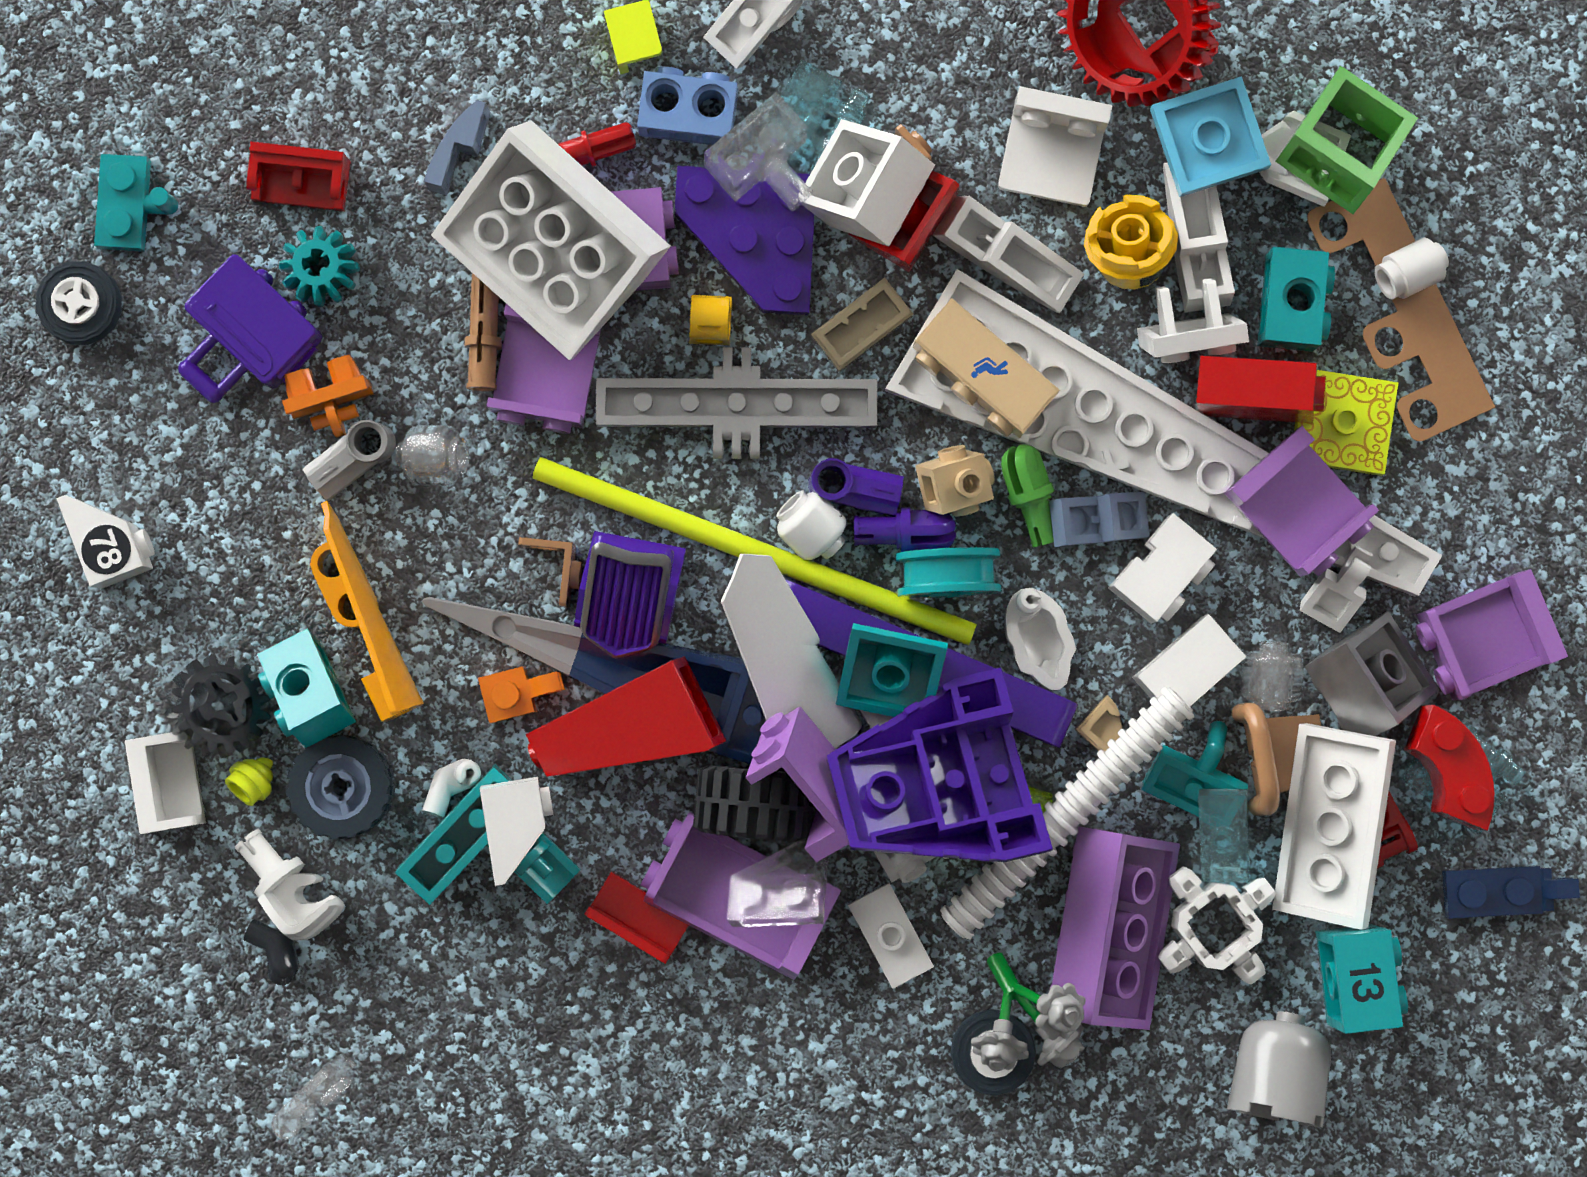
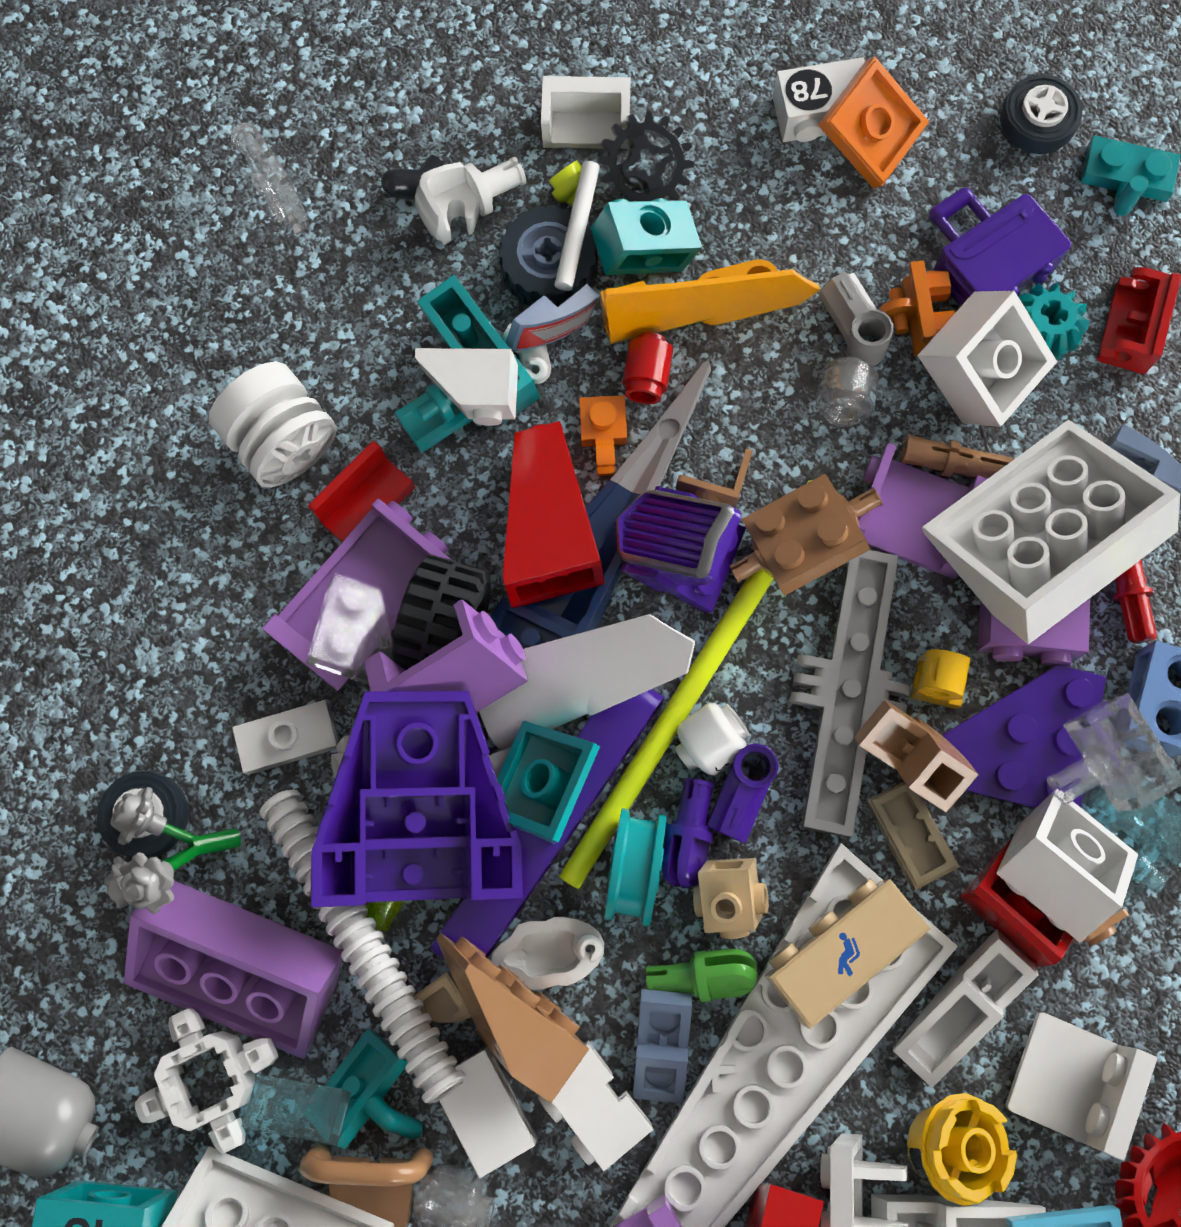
camera: 105 degrees right, 10 degrees down
(126, 475) = (873, 123): none -> orange tile
(307, 761) = (577, 226): none -> white bar
(379, 322) = (988, 358): none -> white brick
(419, 770) = (547, 323): none -> slope
(445, 660) = (647, 368): none -> red brick
(585, 1022) = (272, 424): none -> white wheel
(596, 471) = (805, 534): none -> medium nougat plate
(788, 328) = (919, 755): none -> medium nougat brick
(1108, 653) = (516, 1024): none -> medium nougat slope

